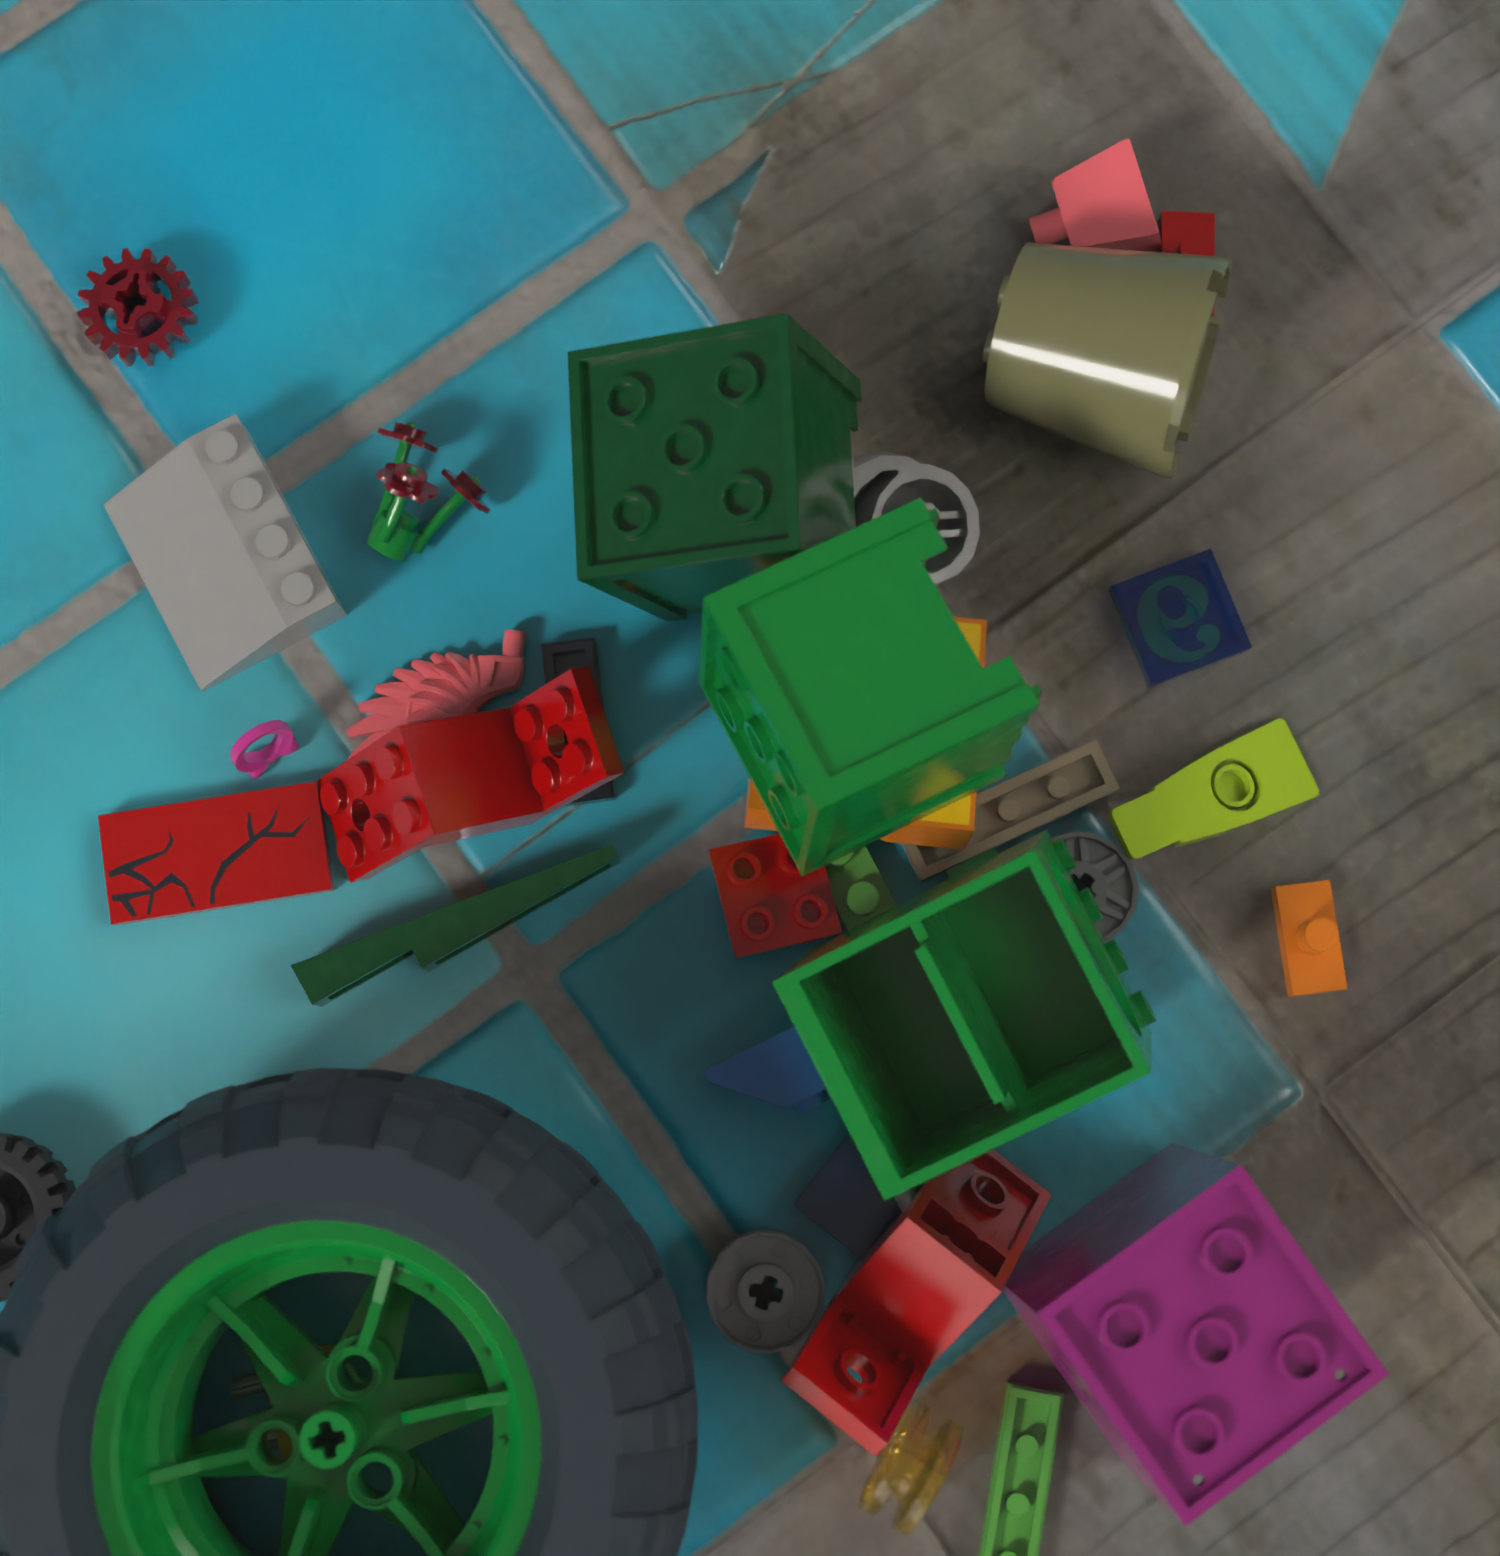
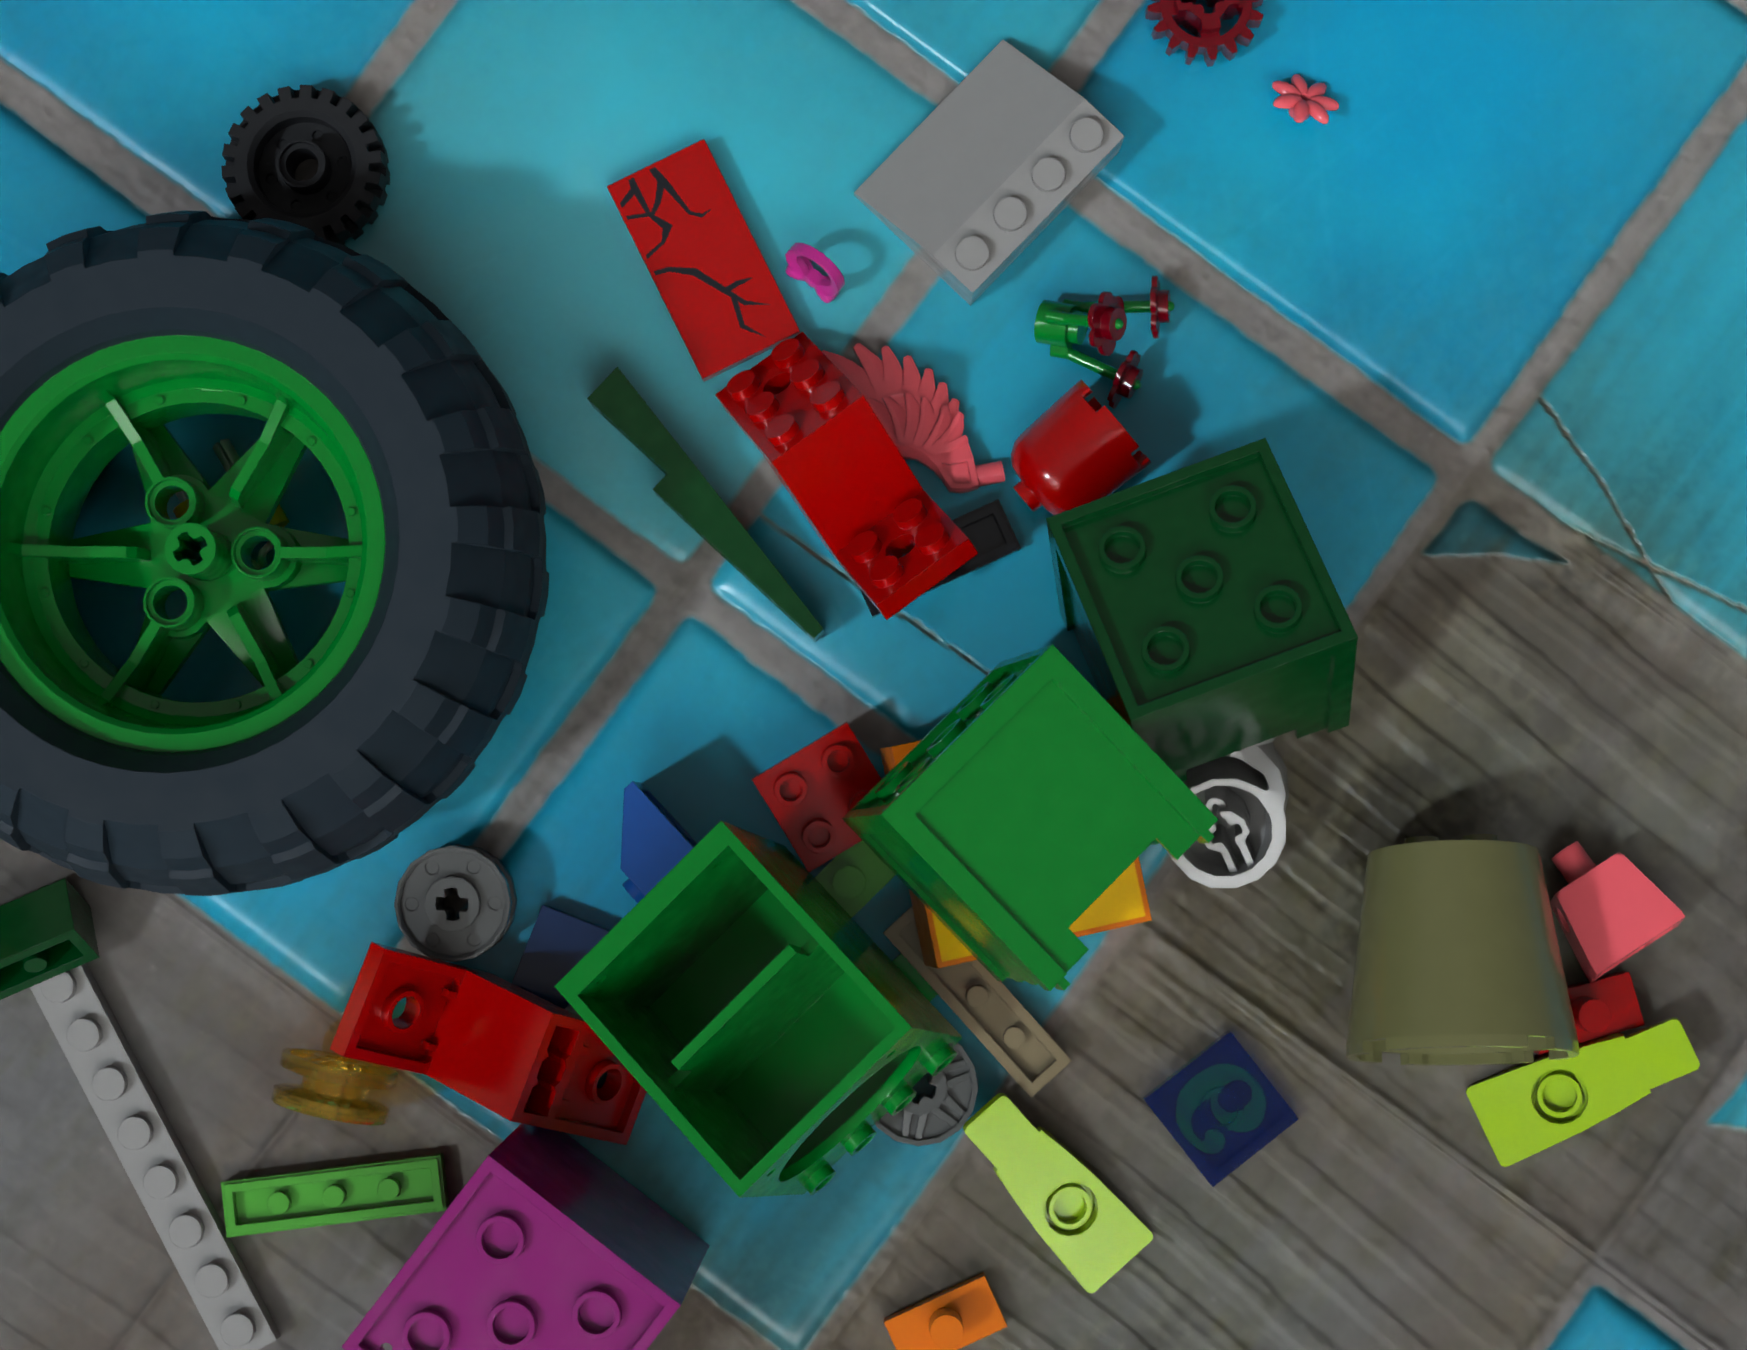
camera: 75 degrees right, 5 degrees up
(261, 247) = (1304, 100): none -> coral plant
(523, 555) = (1074, 454): none -> red cylinder
(1260, 315) = (1556, 1099): none -> lime piece

